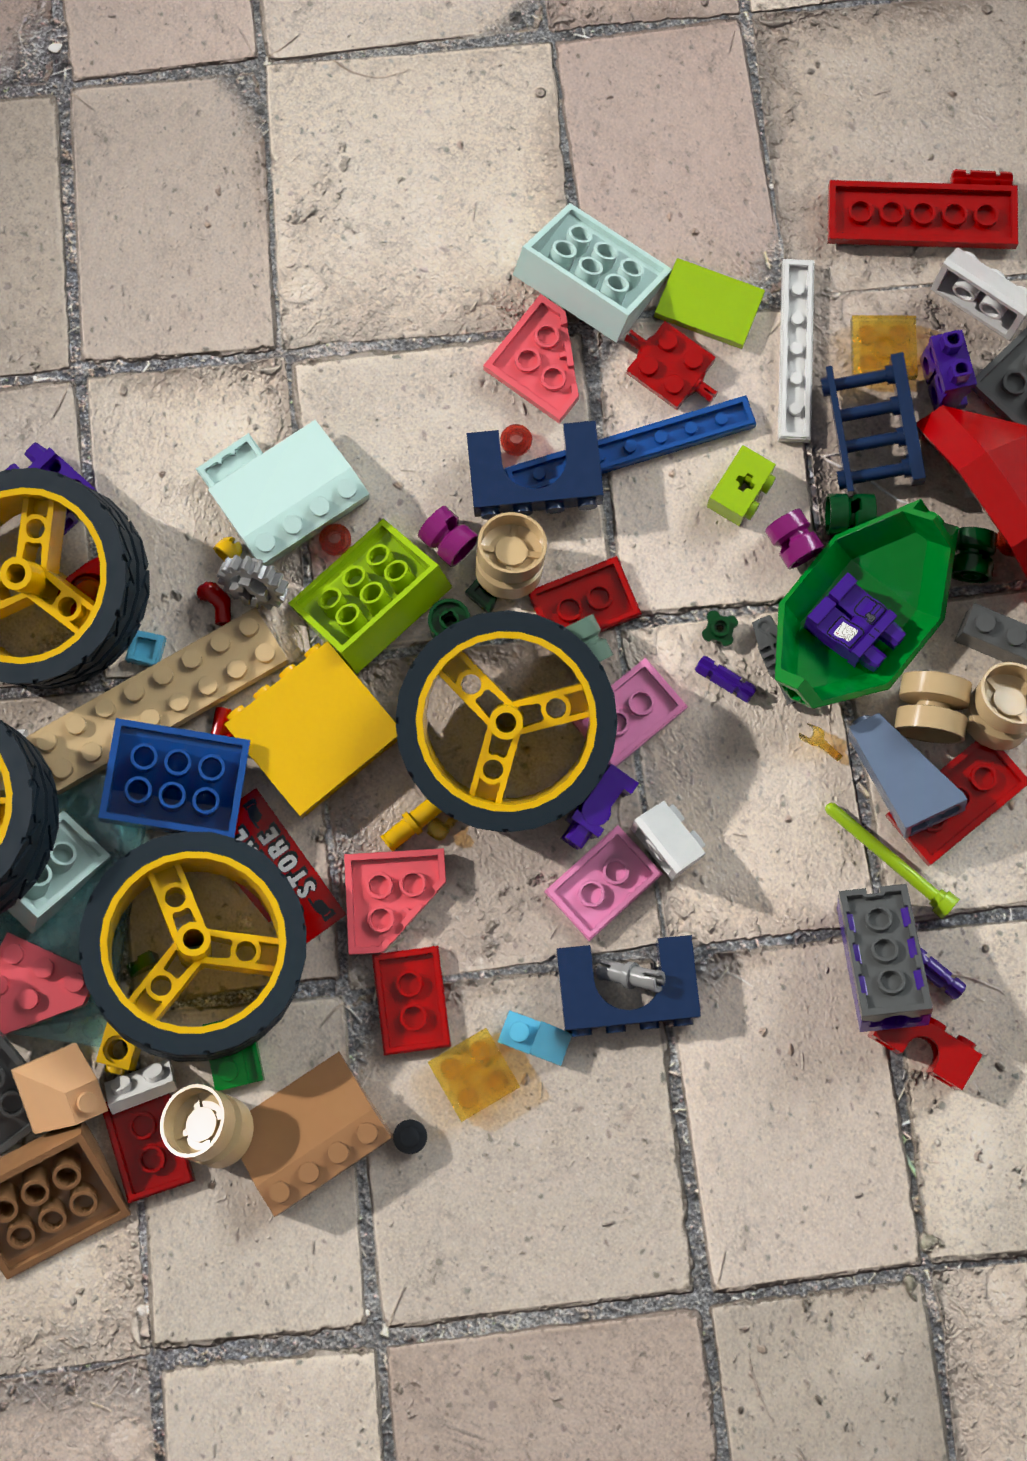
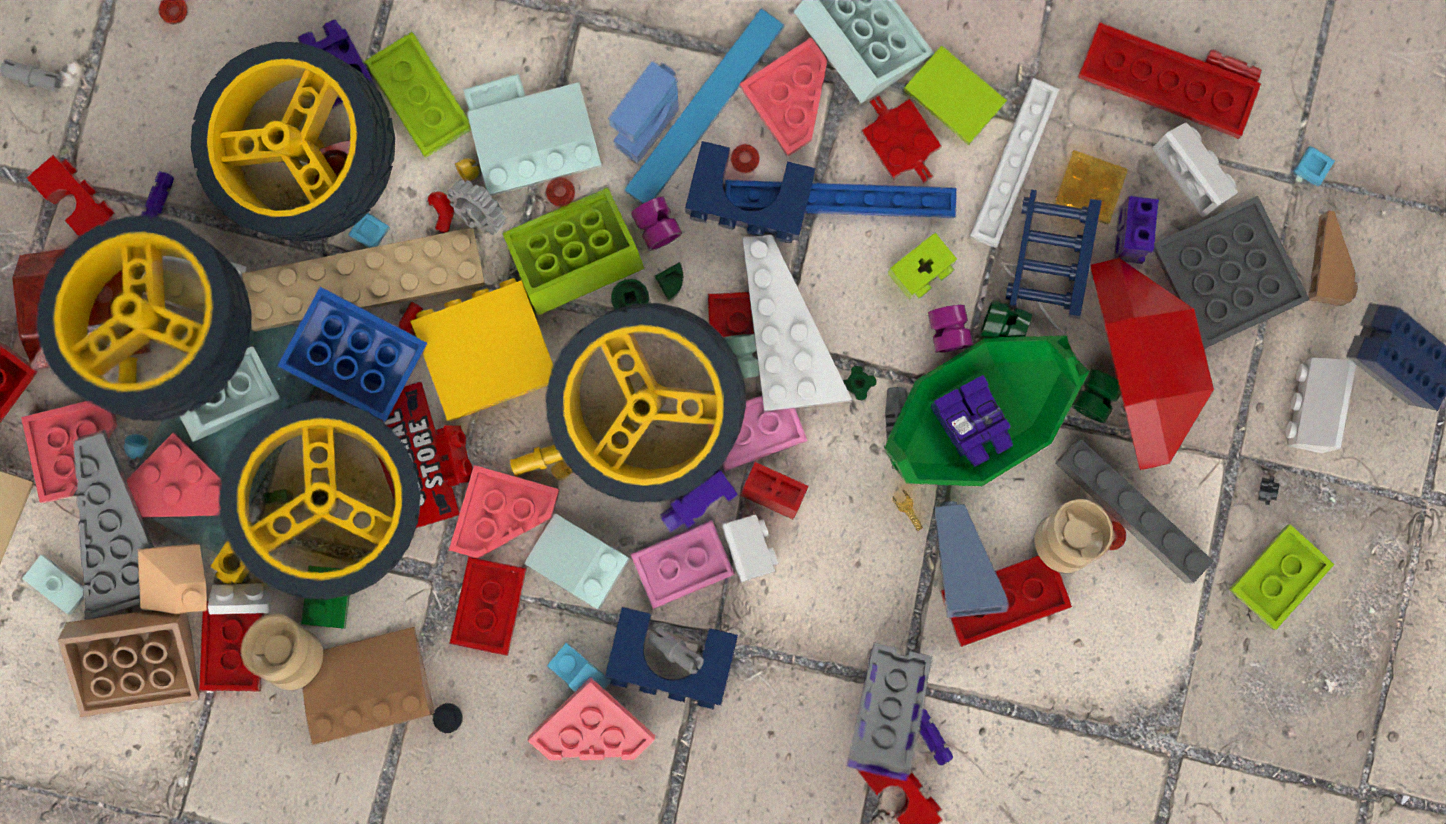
camera: 15 degrees right, 5 degrees up
(150, 491) = (418, 94): none -> lime tile
(312, 839) = (452, 442): none -> red hinge
(398, 420) = (645, 111): none -> medium blue arch
(455, 403) = (704, 107): none -> dark azure tile
(473, 1074) = (517, 686): clear yellow plate -> none
(490, 918) = (577, 561): none -> light aqua slope
(510, 555) = (702, 259): tan wheel -> none
(569, 1092) = (591, 728): none -> coral plate
(634, 615) = (789, 348): none -> white wing
(673, 770) = (774, 490): none -> red hinge
(725, 678) = (848, 428): dark purple axle -> none
(933, 703) = (1016, 508): tan wheel -> none
(939, 900) = (958, 678): lime piece -> none

